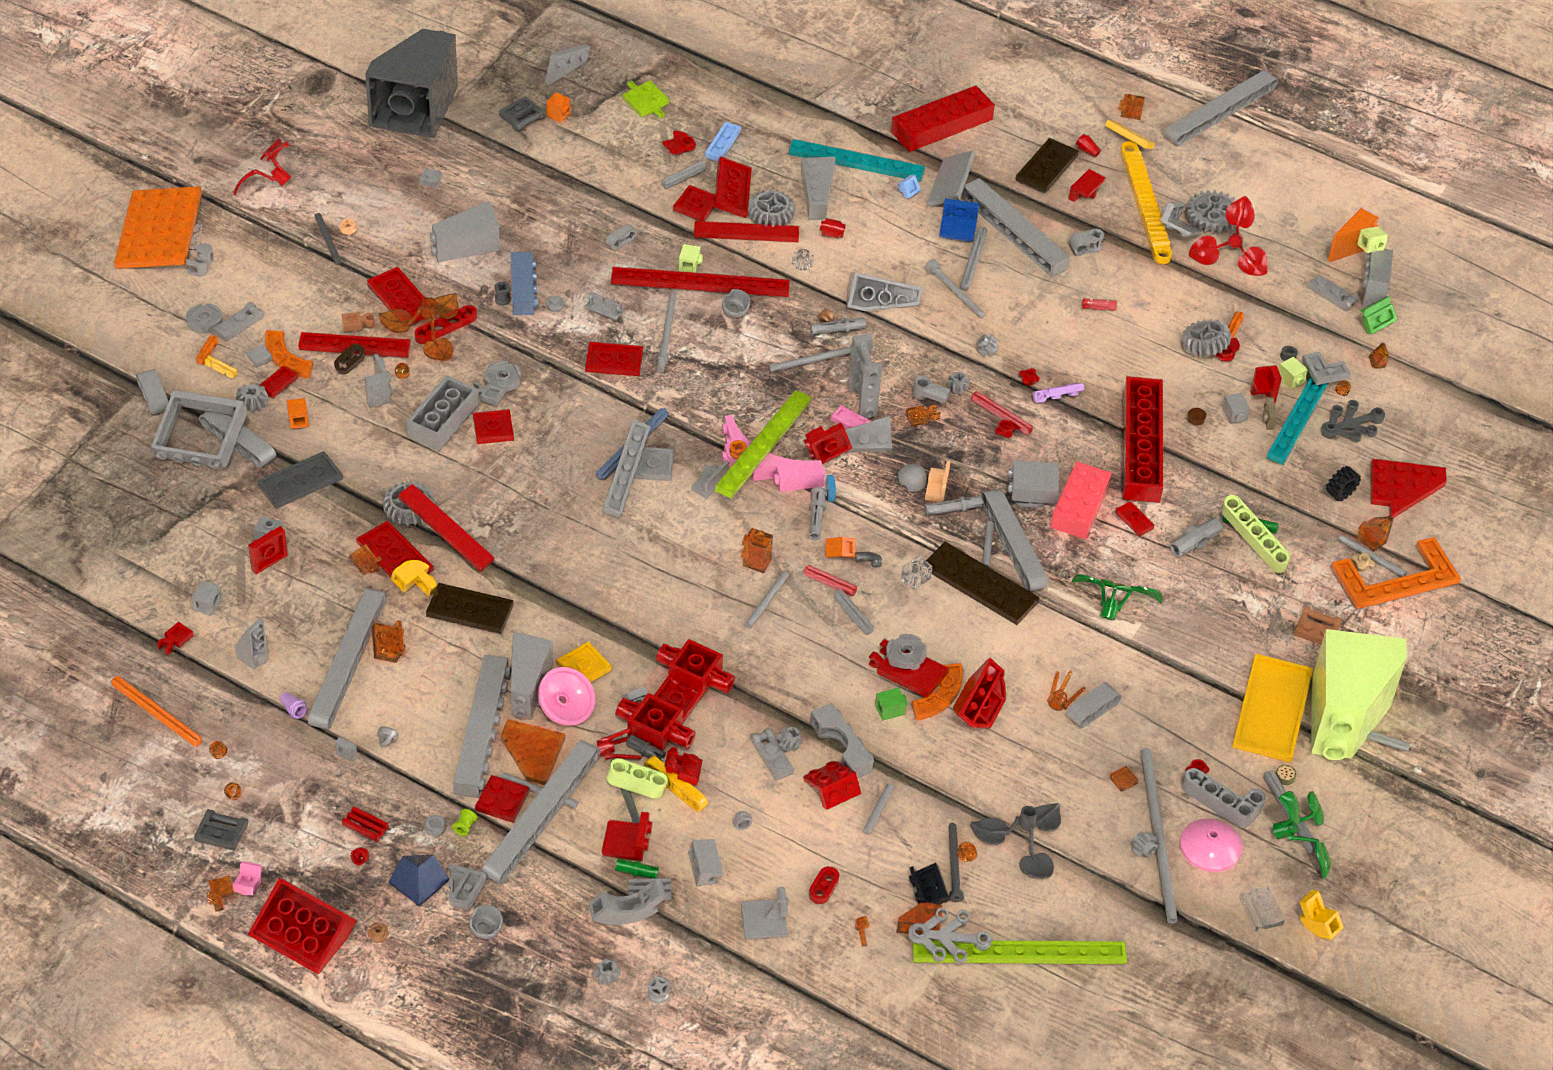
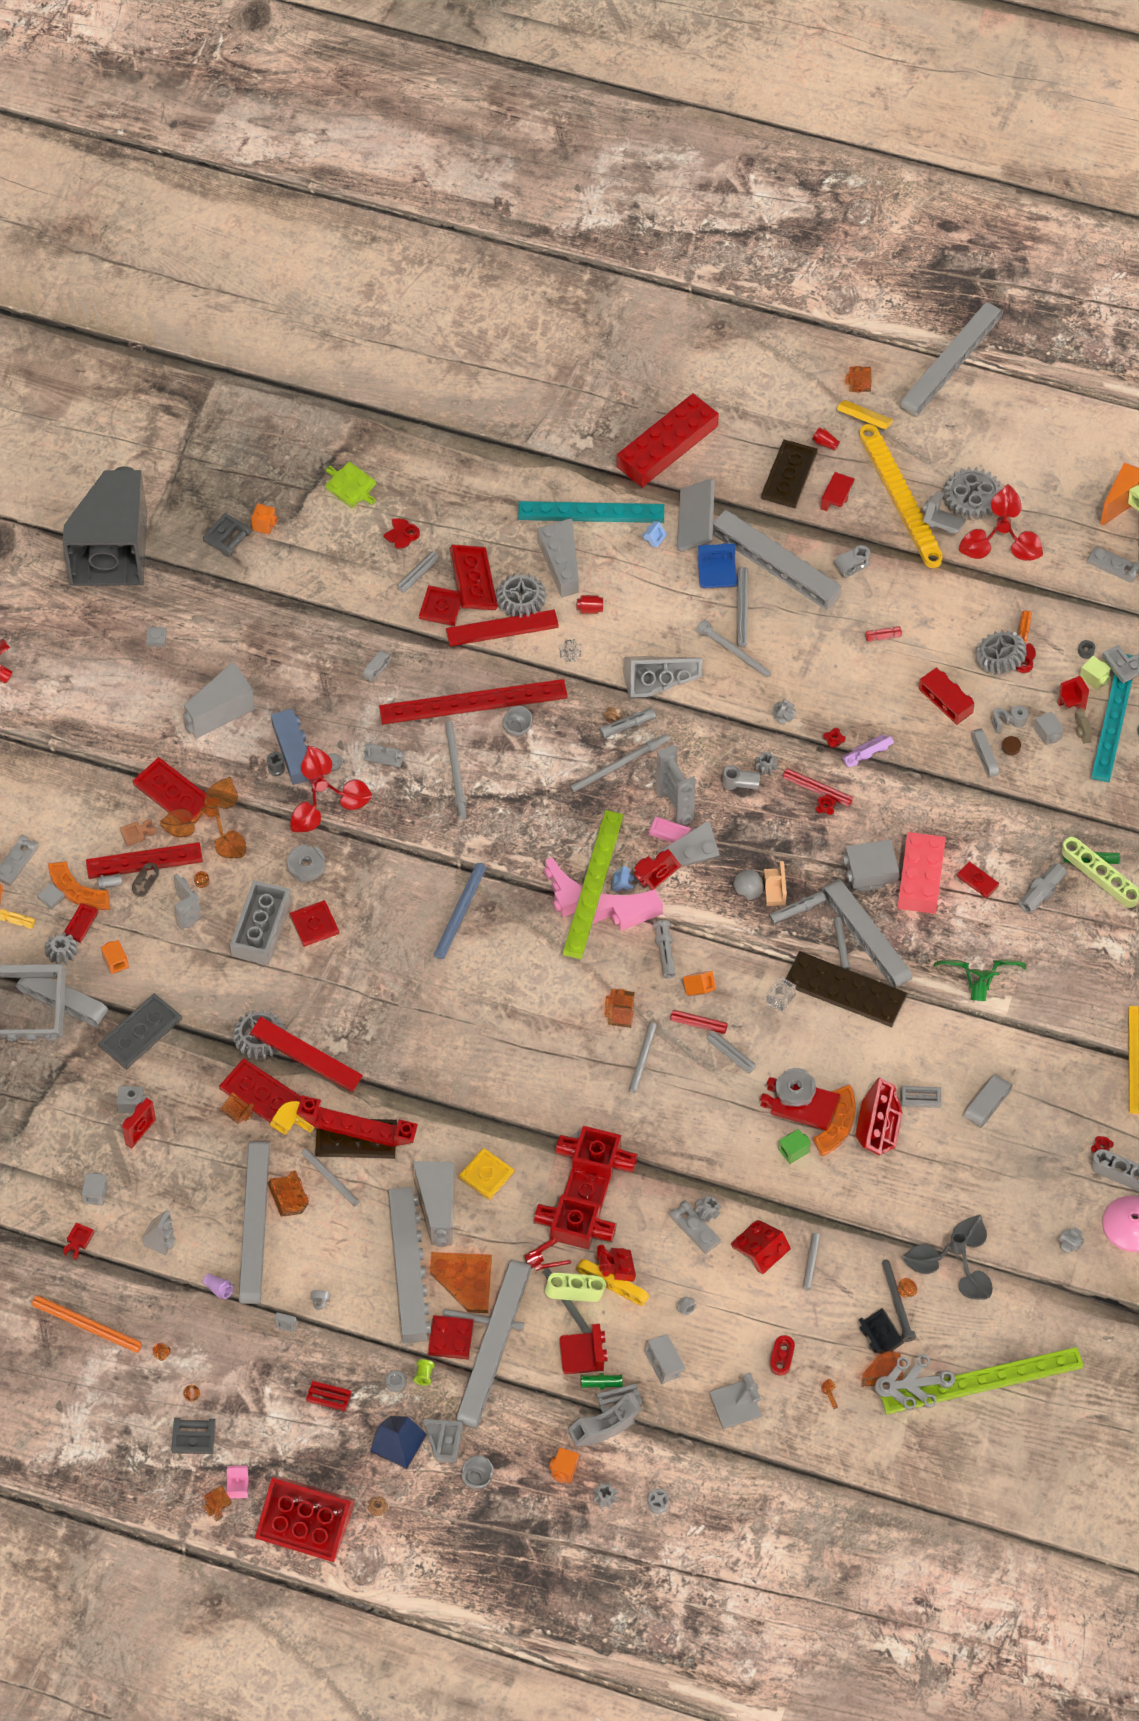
camera: 10 degrees left, 10 degrees up
(316, 354) = (109, 881): none -> light grey pin
(336, 258) = (74, 738): dark grey bar -> none
(348, 226) = (90, 714): light nougat plate -> none
(357, 854) = (330, 1432): red hinge -> none
(434, 637) = (329, 1176): none -> light grey bar
(465, 316) = (231, 815): red beam -> none
(476, 598) = (355, 1126): none -> red slope
(490, 394) = (300, 887): light grey plate -> none
(535, 291) = (314, 766): none -> red plant
(566, 61) = (254, 459): light grey wing -> none
(574, 691) = (490, 1211): bright pink dish -> none
(575, 936) = (564, 1465): none -> orange brick
(614, 359) = (412, 814): red tile -> none
(626, 469) = (464, 944): light grey plate -> none
(636, 695) = (547, 1196): light grey tile -> none
(644, 748) = (571, 1250): dark grey axle -> none
(655, 464) = (487, 928): light grey tile -> none
(690, 258) = (455, 676): yellowish green brick -> none
(710, 477) = (550, 934): light grey panel -> none
(723, 141) = (447, 522): light blue plate -> none
(737, 444) = (574, 901): orange bush -> none
(792, 449) = (621, 879): none -> light blue tile
(830, 724) = (741, 1182): light grey arch -> none
(831, 488) = (671, 916): dark azure tile -> none
(869, 556) = (730, 985): dark grey arm -> none
(920, 415) = (739, 810): clear orange plate -> none
(1027, 690) = (921, 1100): none -> light grey tile
(1058, 699) = (953, 1102): clear orange plant -> none
(1124, 778) = (1035, 1173): clear orange tile -> none
(1143, 360) = (946, 695): none -> red brick
(1143, 439) = (966, 788): red brick -> none
(1158, 831) = (1082, 1225): light grey piece -> none
(1170, 417) = (985, 752): none -> light grey beam
(1208, 392) = (1017, 717): none -> light grey leg

